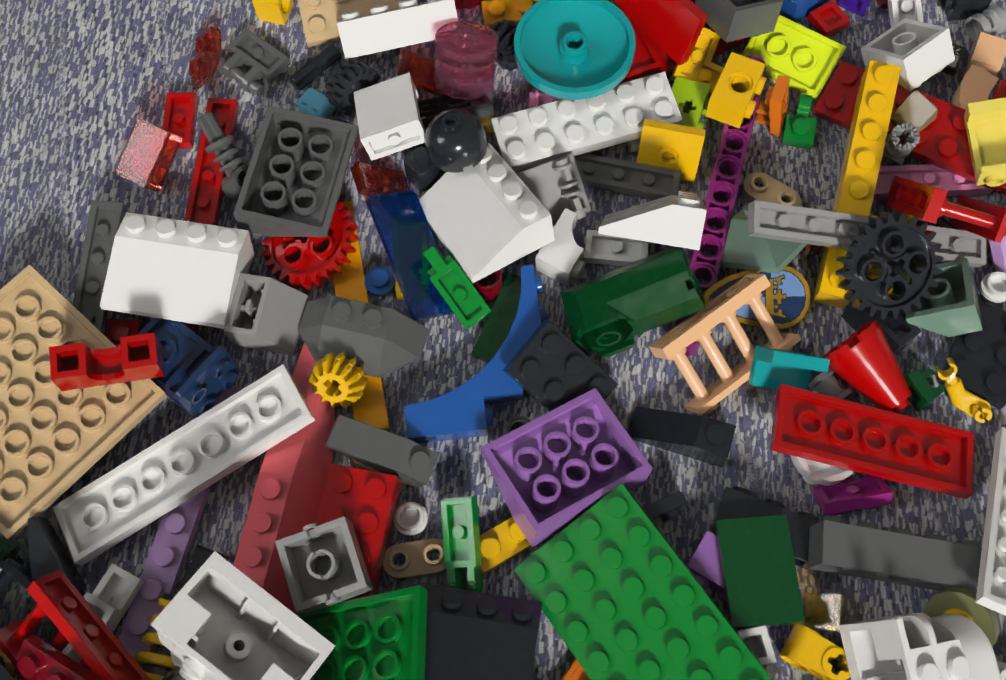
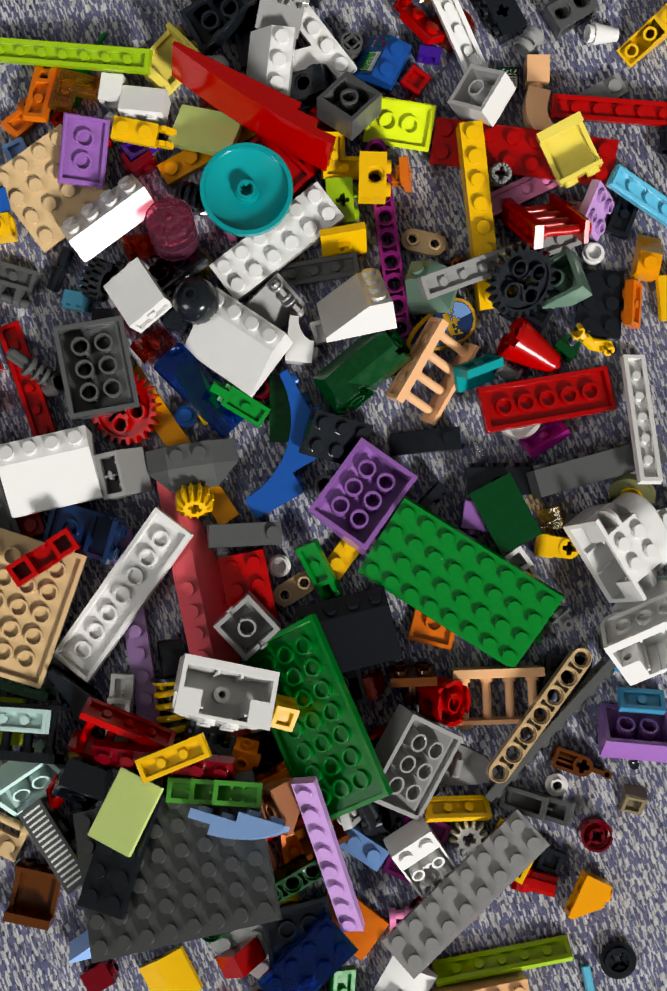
camera: 30 degrees left, 20 degrees up
(799, 128) = (424, 181): green plate -> none
(915, 111) = (501, 148): dark tan slope -> none

